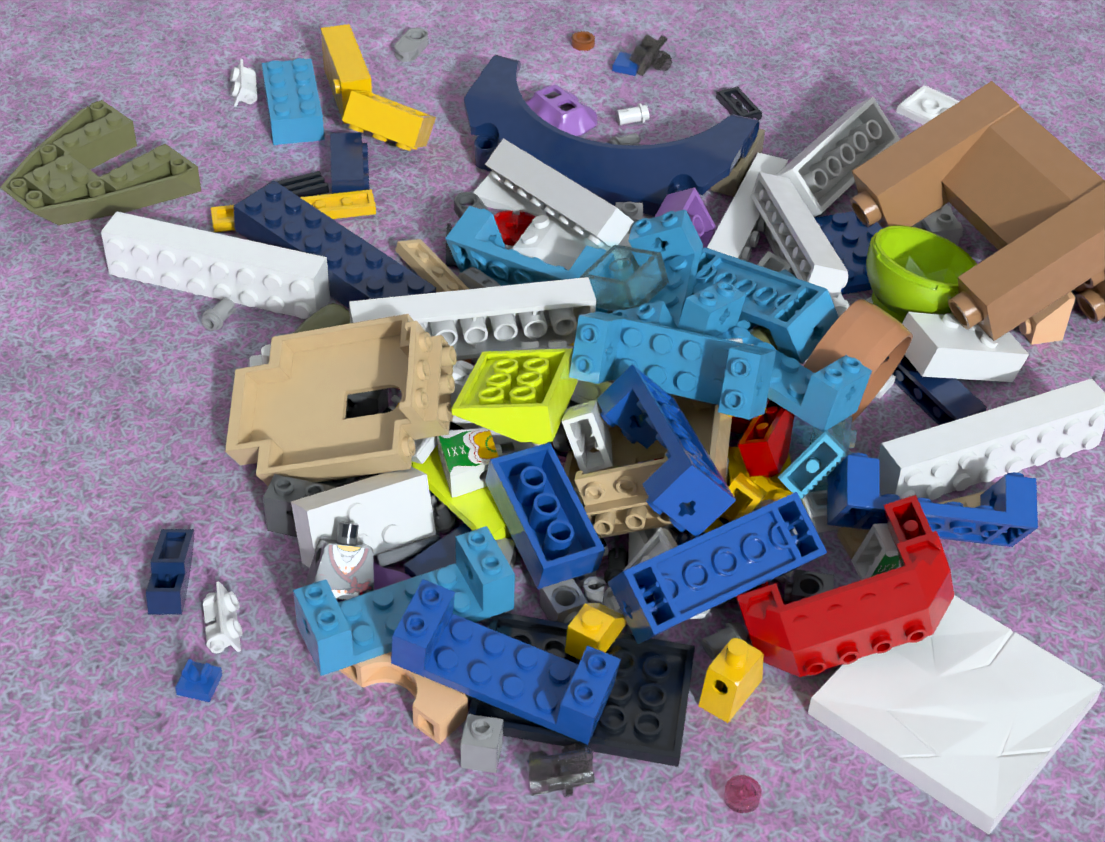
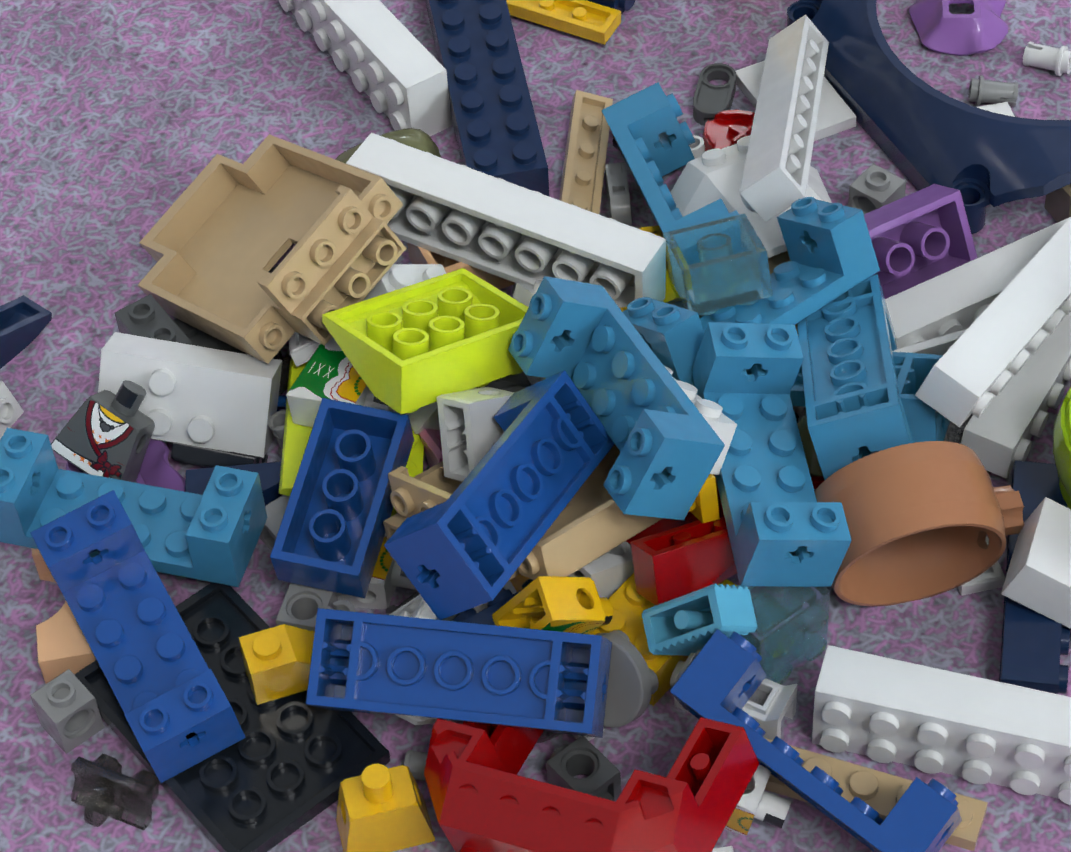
camera: 45 degrees right, 5 degrees up
(214, 317) = (314, 84): light grey pin -> none

